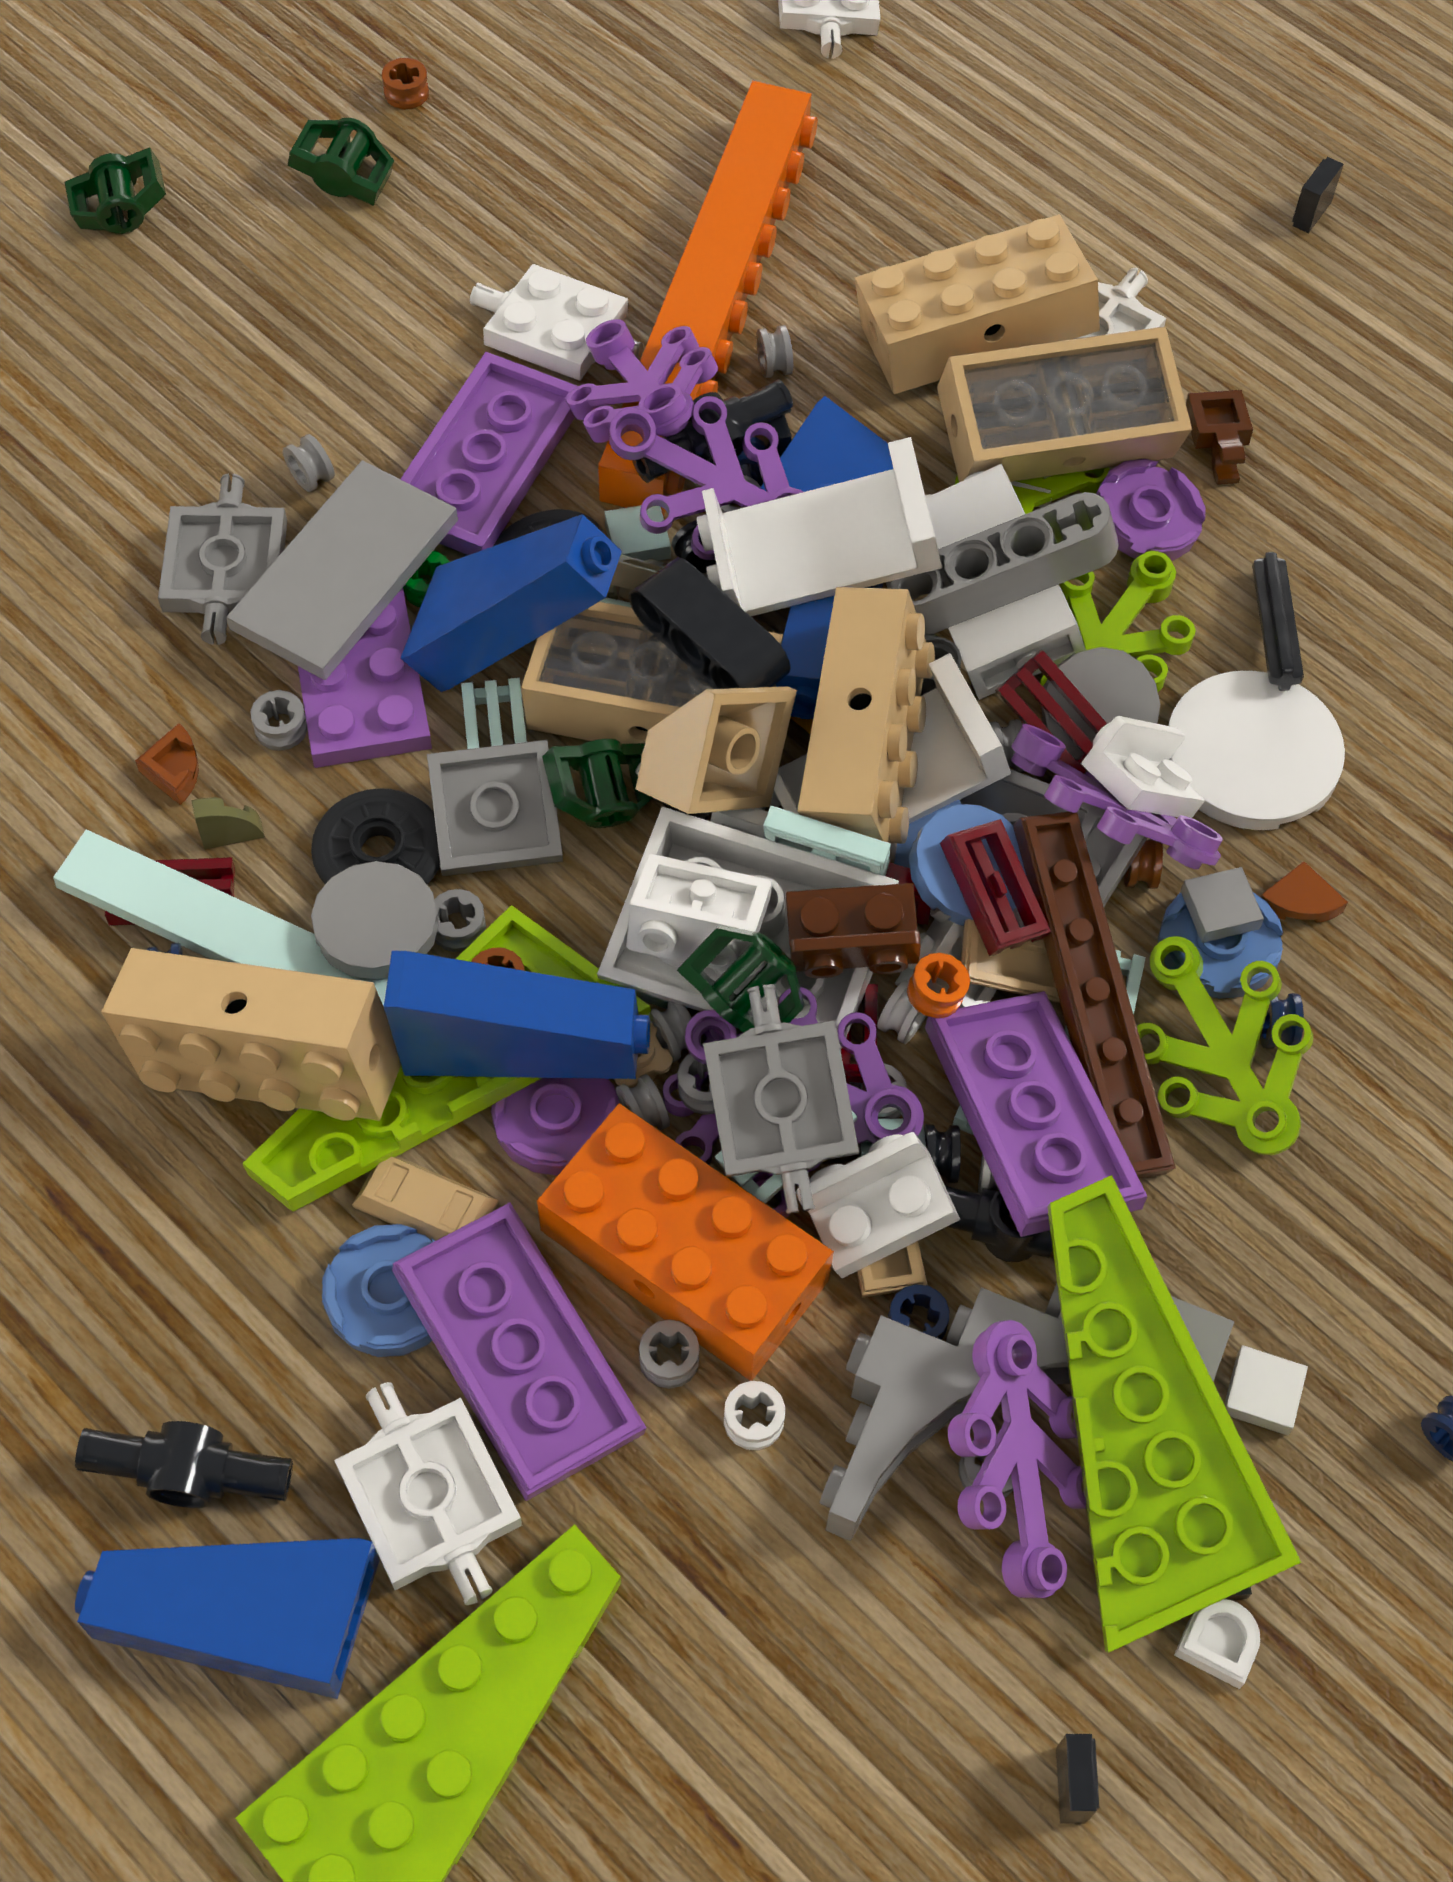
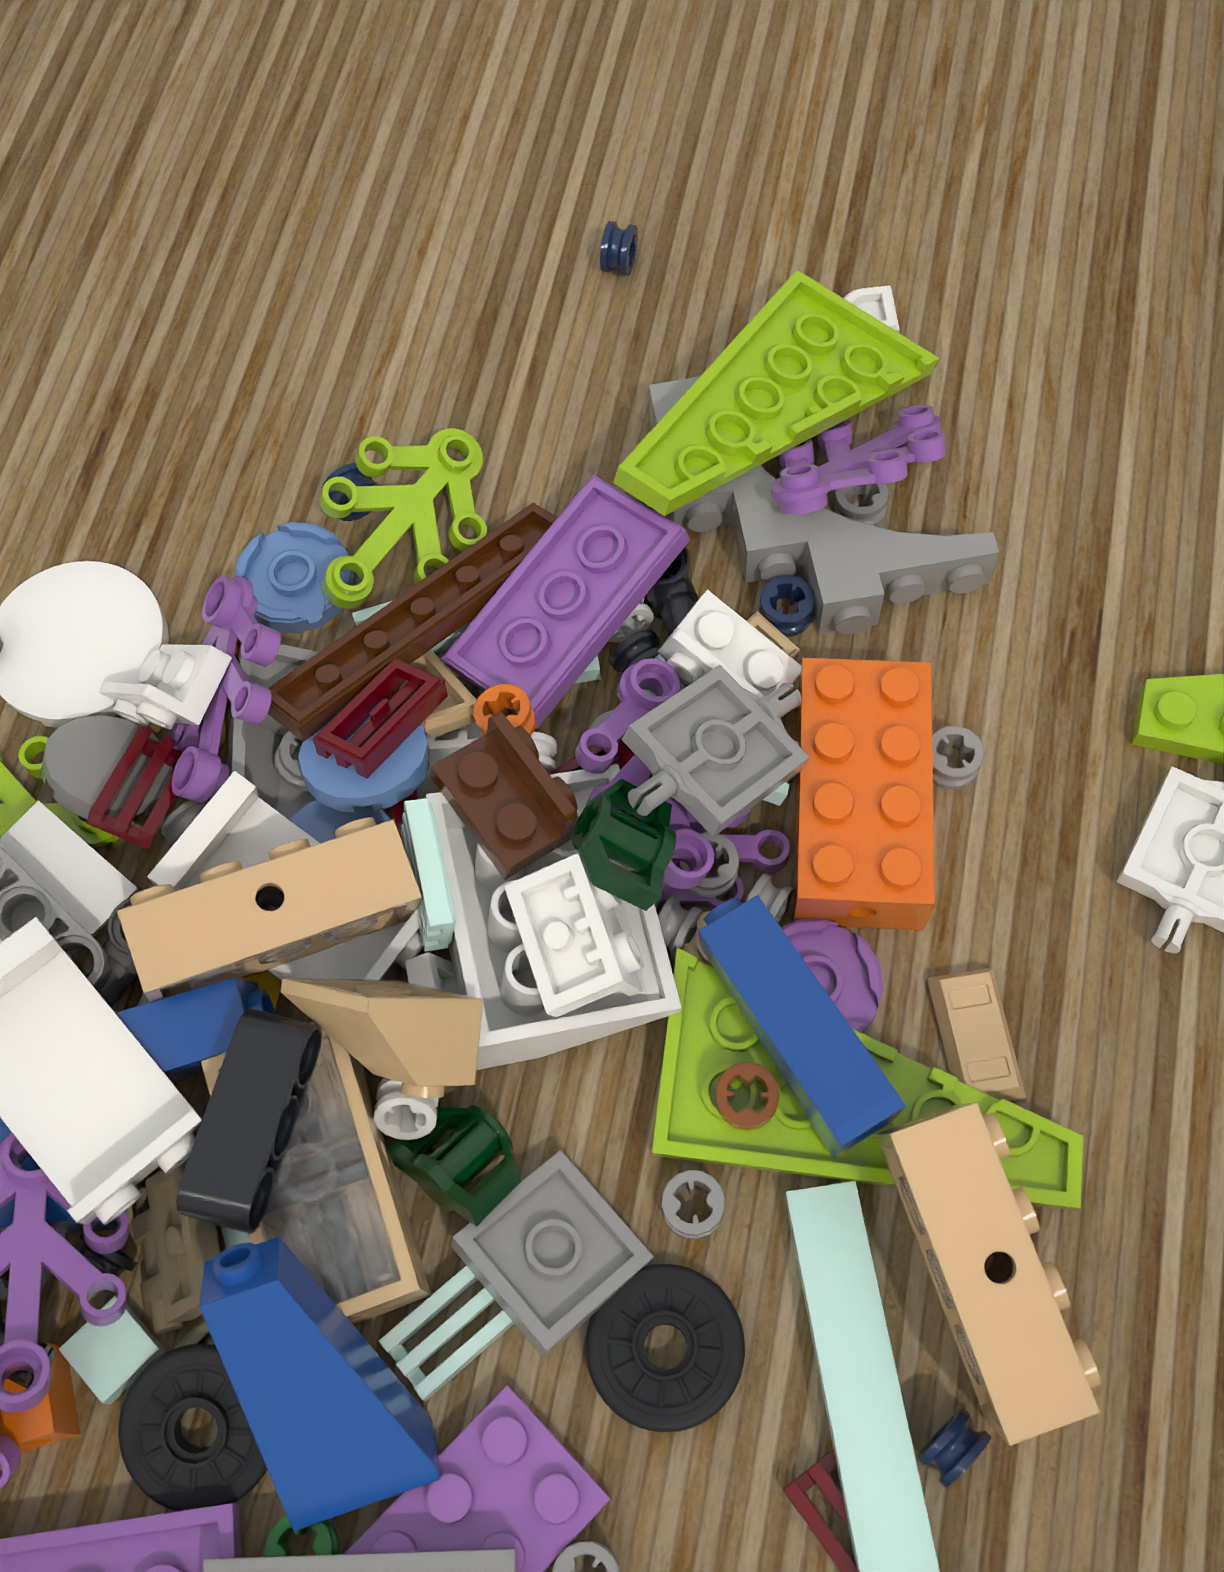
camera: 115 degrees left, 5 degrees up
(224, 824) = (747, 1528): olive tile -> none
(366, 1298) = (1073, 1009): medium blue tile -> none
(370, 914) = (761, 1267): light grey tile -> none
(518, 1350) = (1043, 868): medium lavender tile -> none
(750, 1395) = (966, 661): white bush -> none
(1077, 1778) = (1036, 335): black tile -> none
(1222, 904) = (273, 574): light grey tile -> none
(1265, 1390) = (667, 362): white tile -> none
(1304, 896) = (213, 538): dark orange tile -> none

